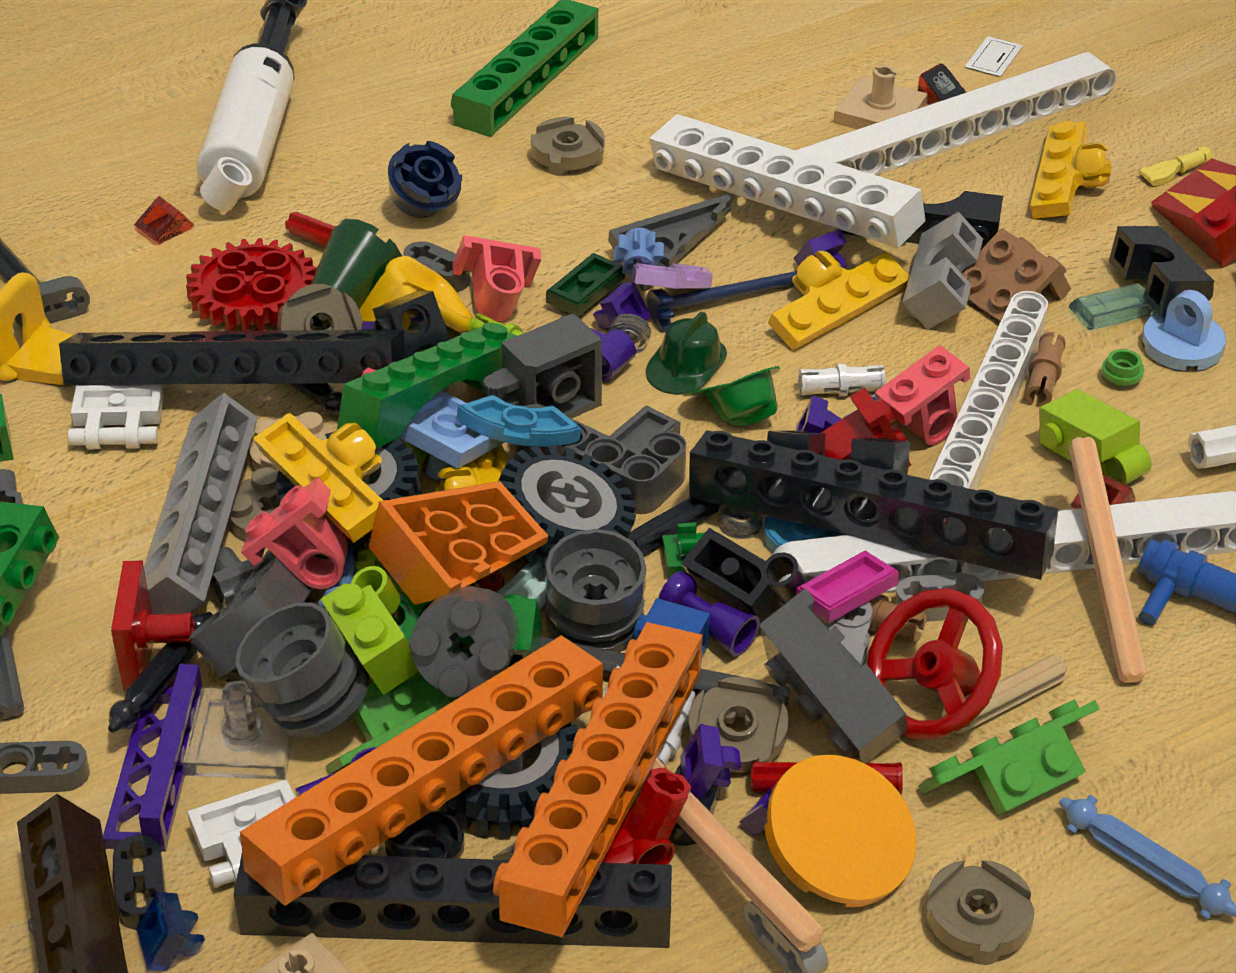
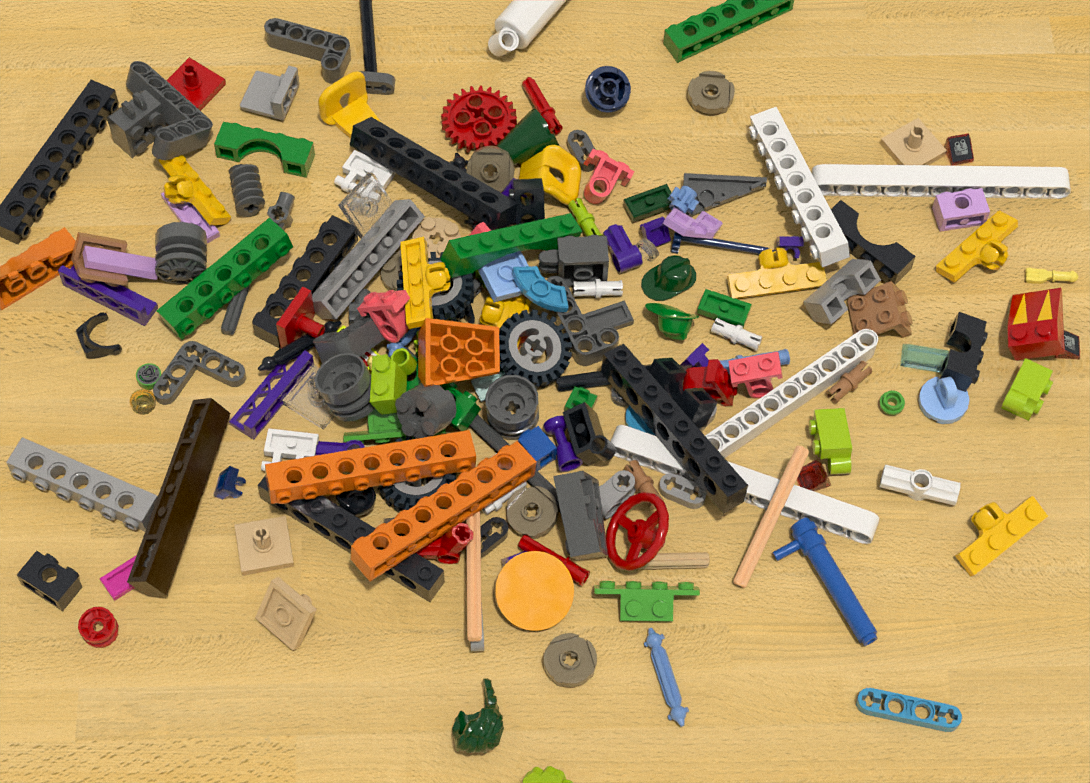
camera: 30 degrees right, 20 degrees up
(118, 530) = (333, 231): none -> black brick
(130, 883) = (227, 449): black beam -> none
(146, 437) = (365, 204): none -> clear tile
(163, 221) = (463, 48): clear red slope -> none
(596, 405) = (598, 288): none -> white pin
(707, 762) = (498, 527): dark purple tile -> none
(797, 354) = (724, 307): none -> green plate
(849, 585) = (629, 467): dark pink tile -> none
(993, 56) = (1018, 135): white sticker -> none
(1004, 140) = (973, 211): none -> lavender brick

